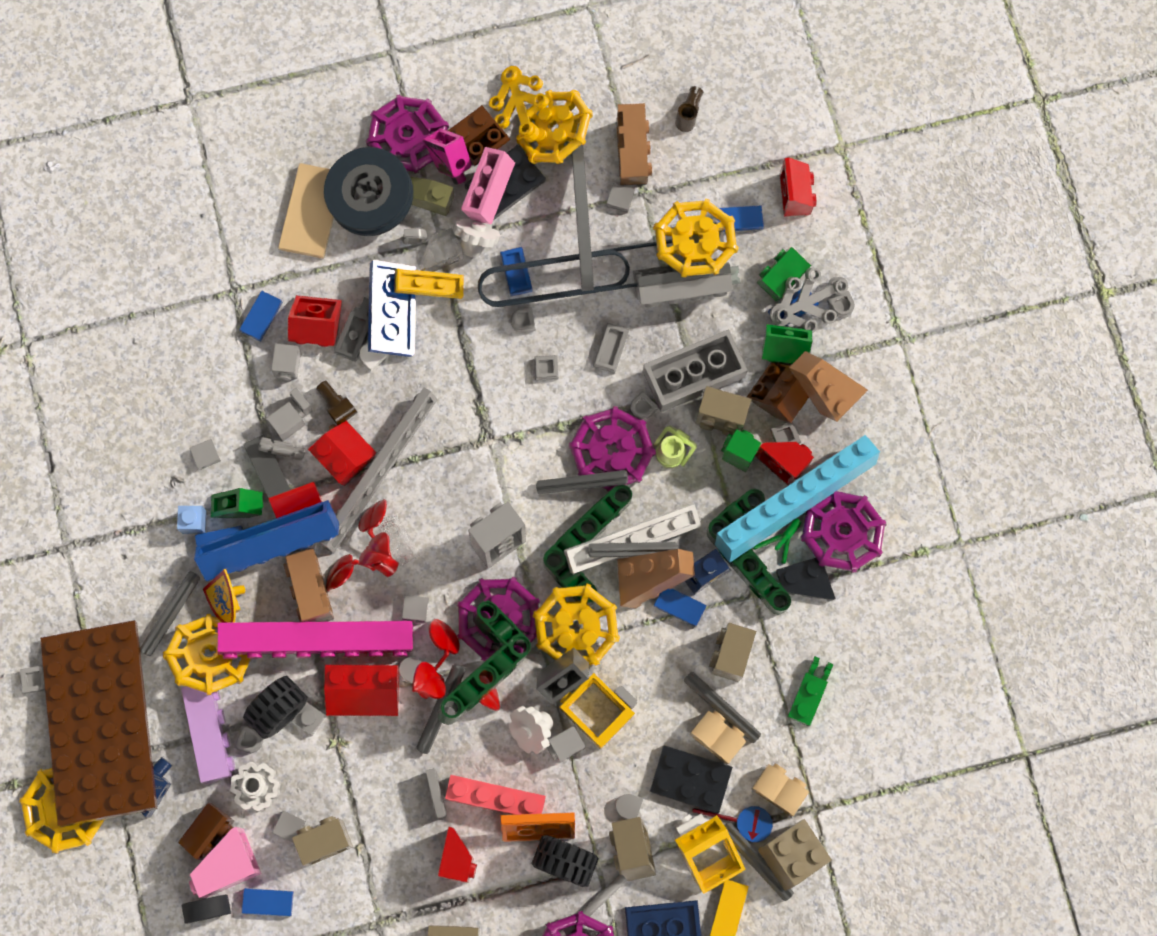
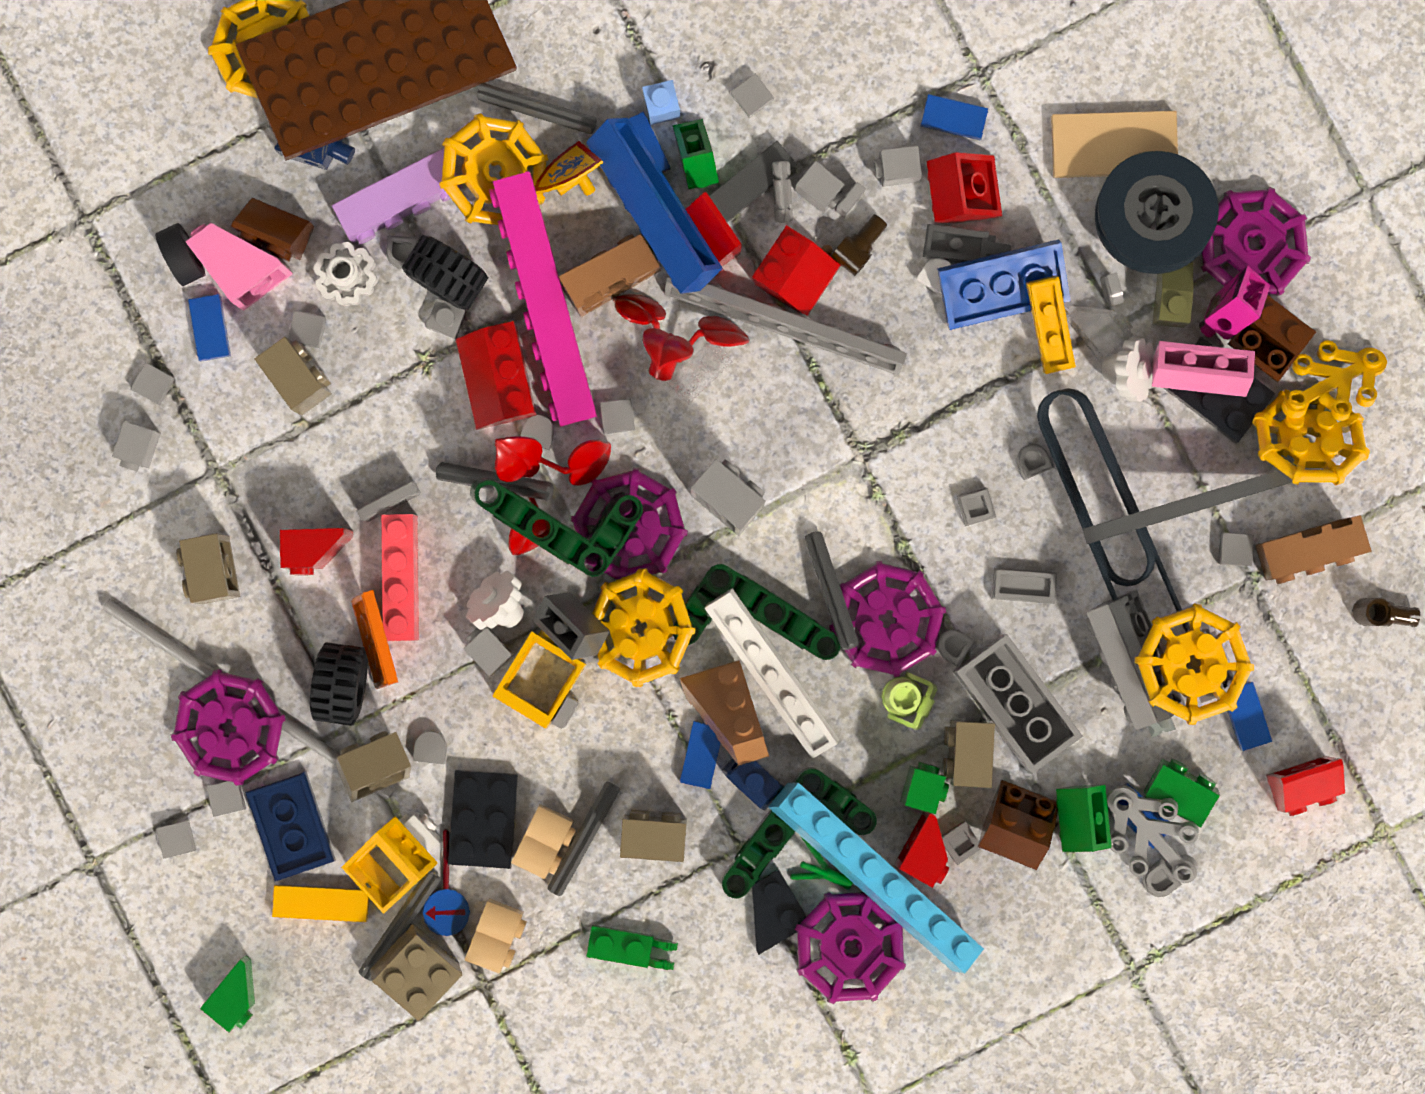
camera: 80 degrees right, 10 degrees up
(519, 279) = (1082, 441): blue tile -> none
(598, 550) = (755, 677): dark grey axle -> none
(826, 386) = (1037, 884): medium nougat wedge -> none

